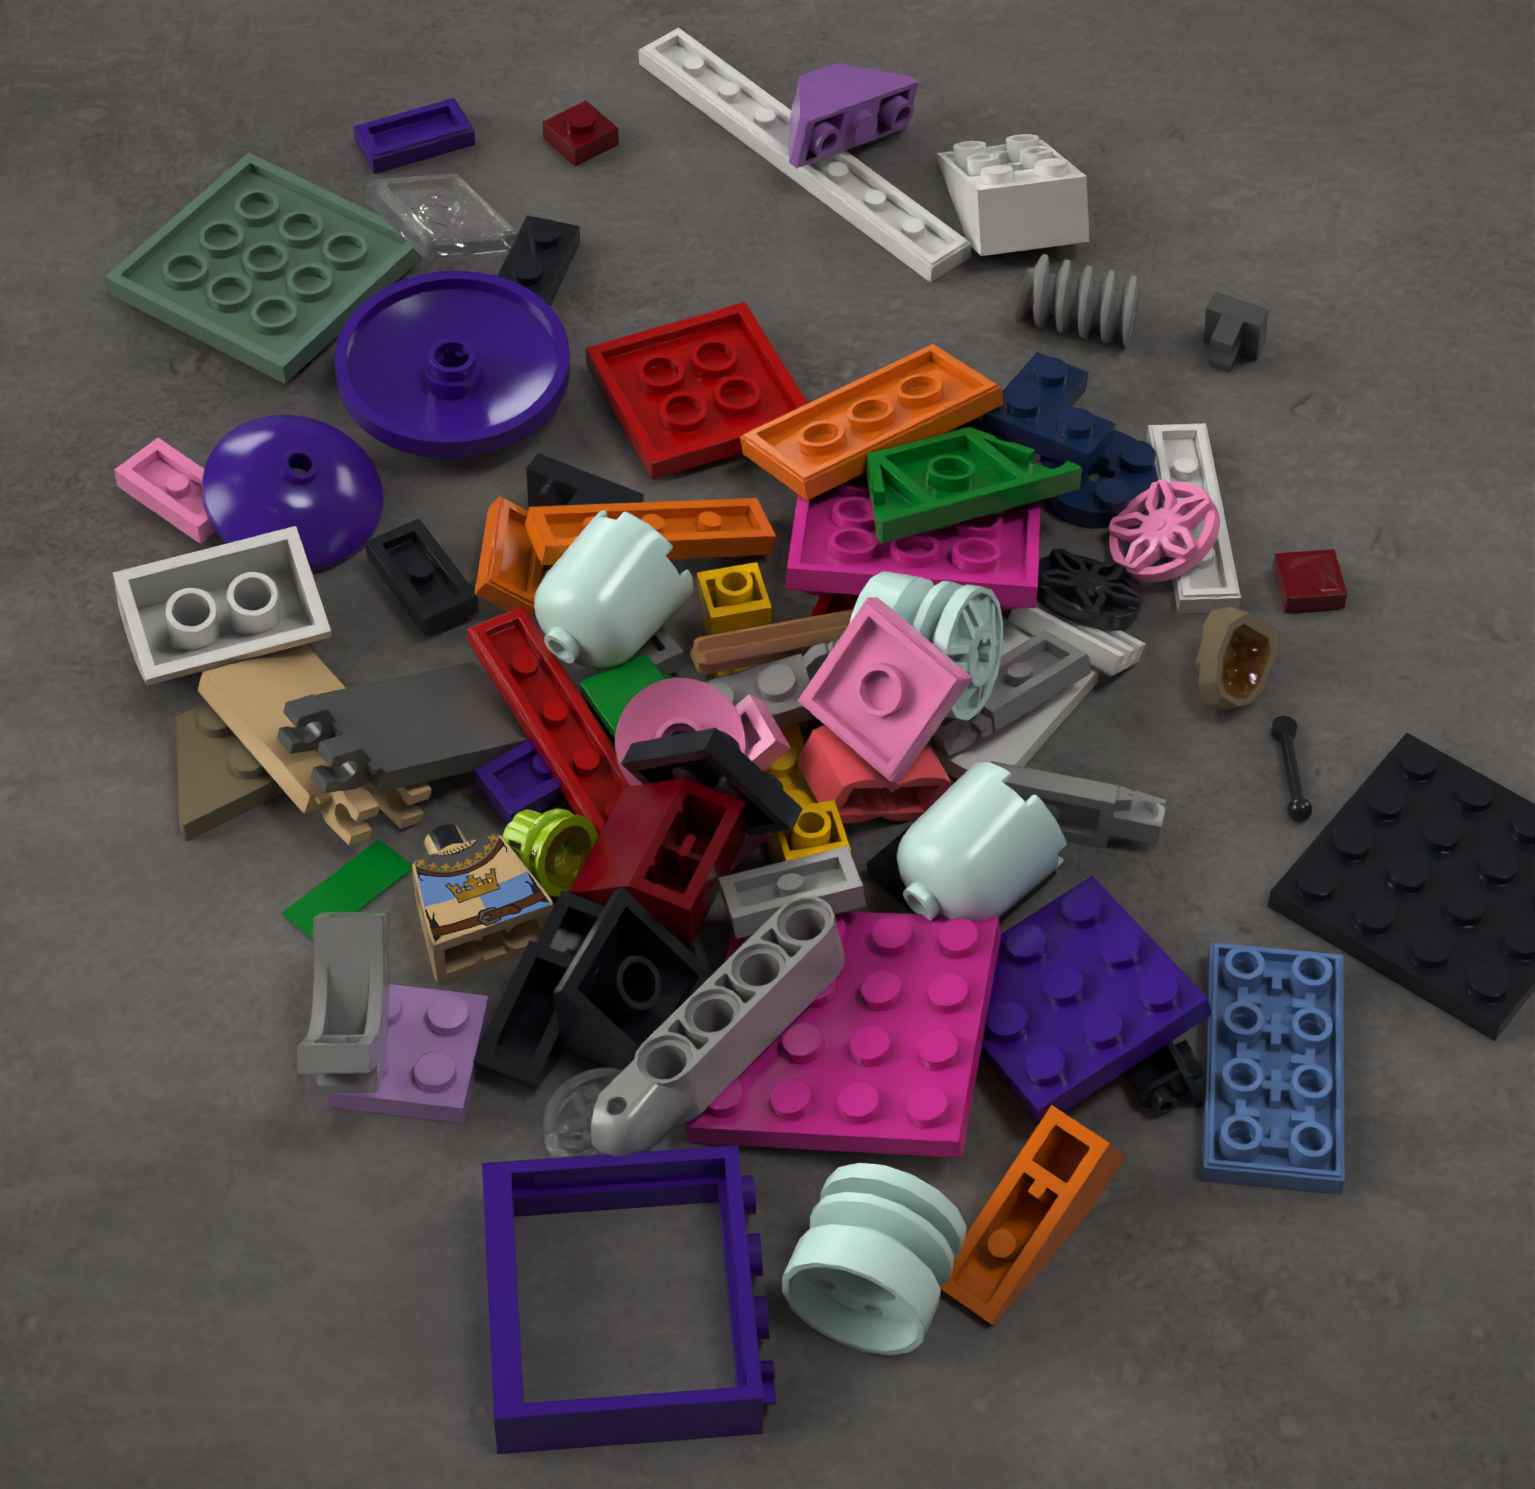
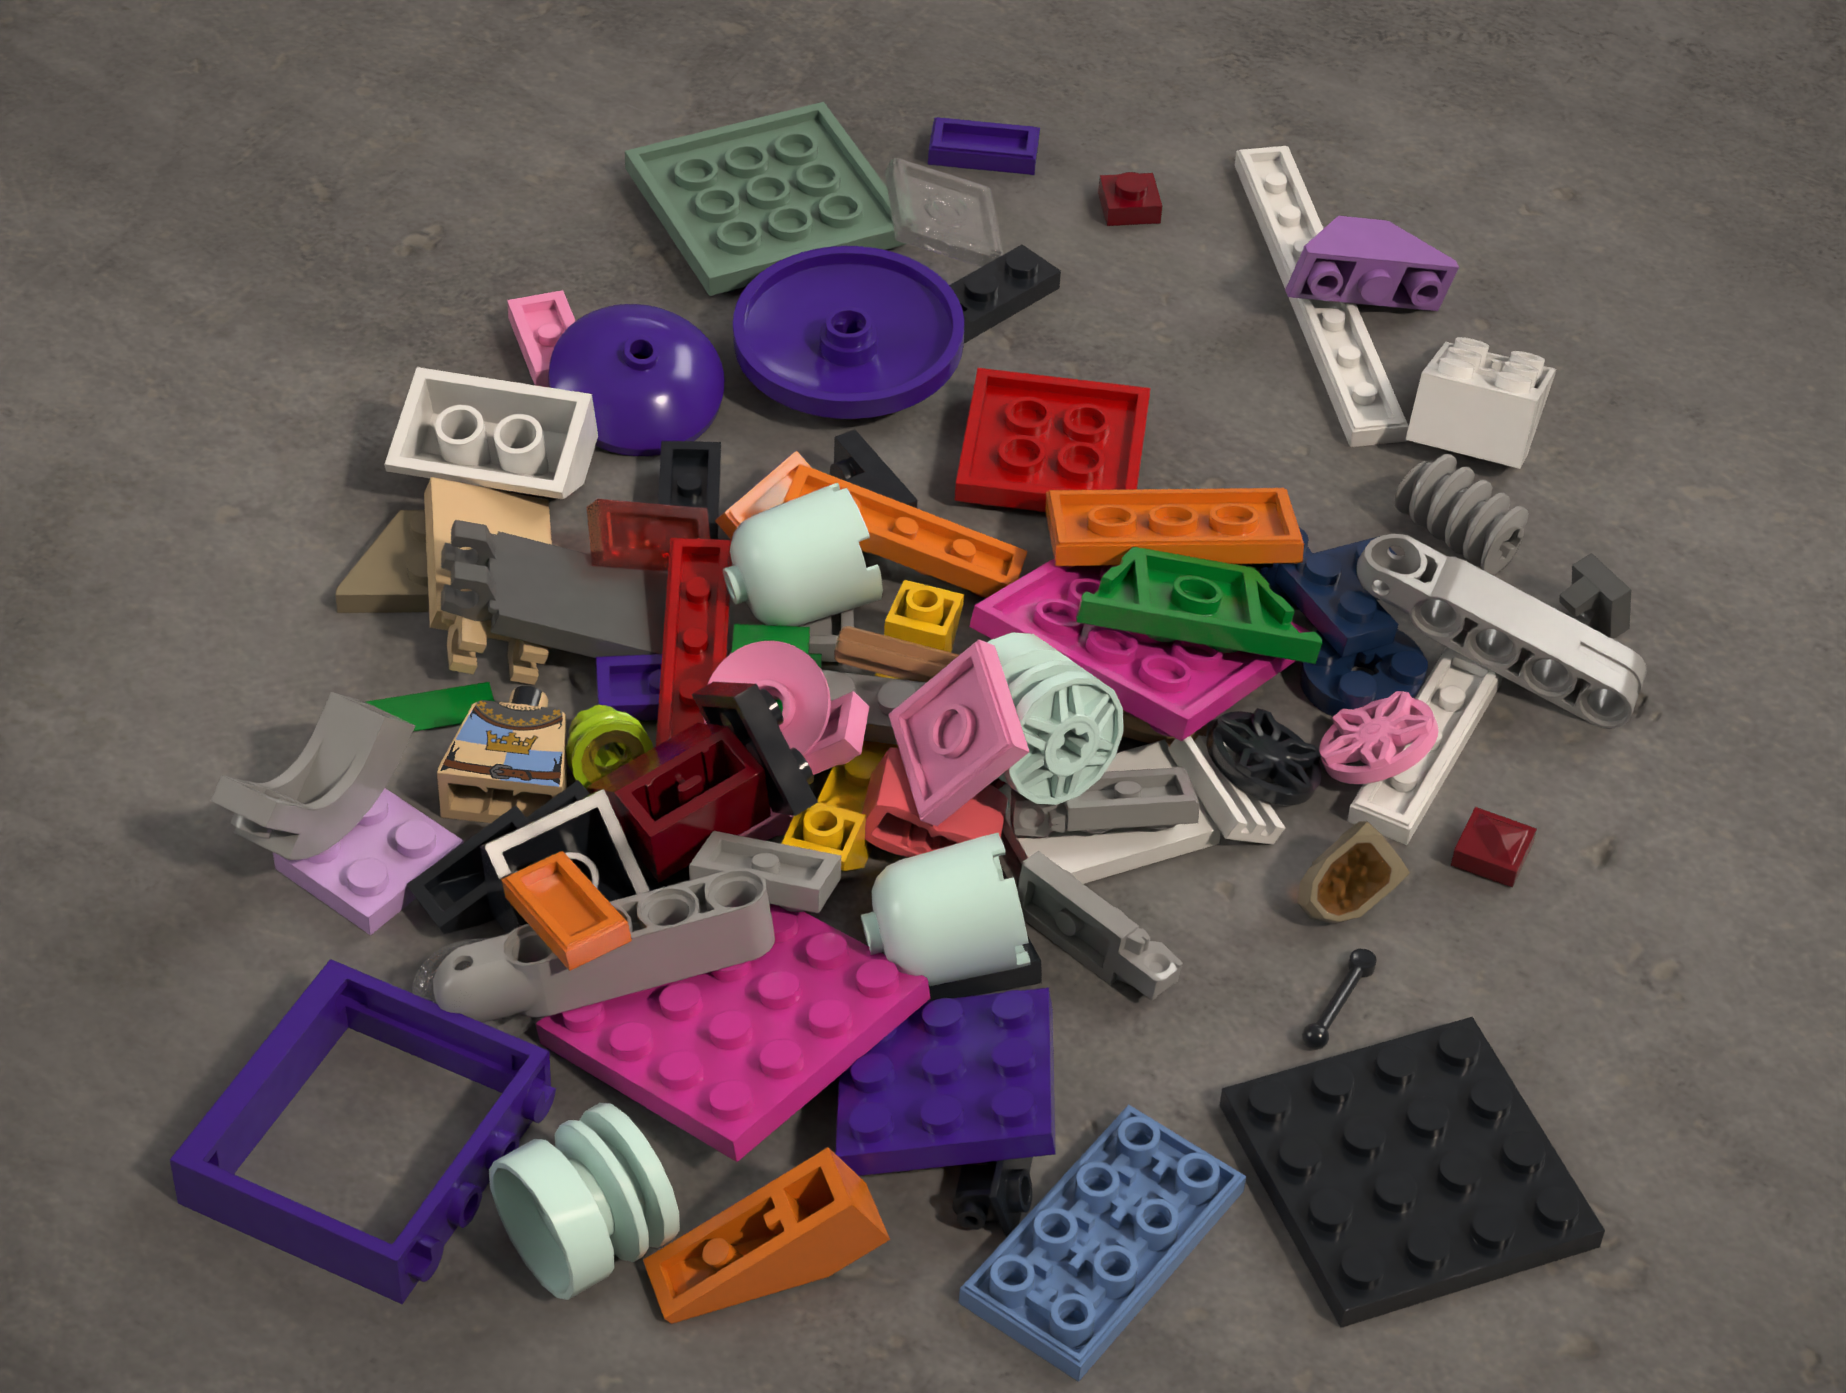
camera: 30 degrees right, 5 degrees down
(433, 636) = (640, 533): none -> clear red plate
(675, 1012) = (566, 910): none -> orange tile
(1198, 389) = (1506, 630): none -> light grey piece

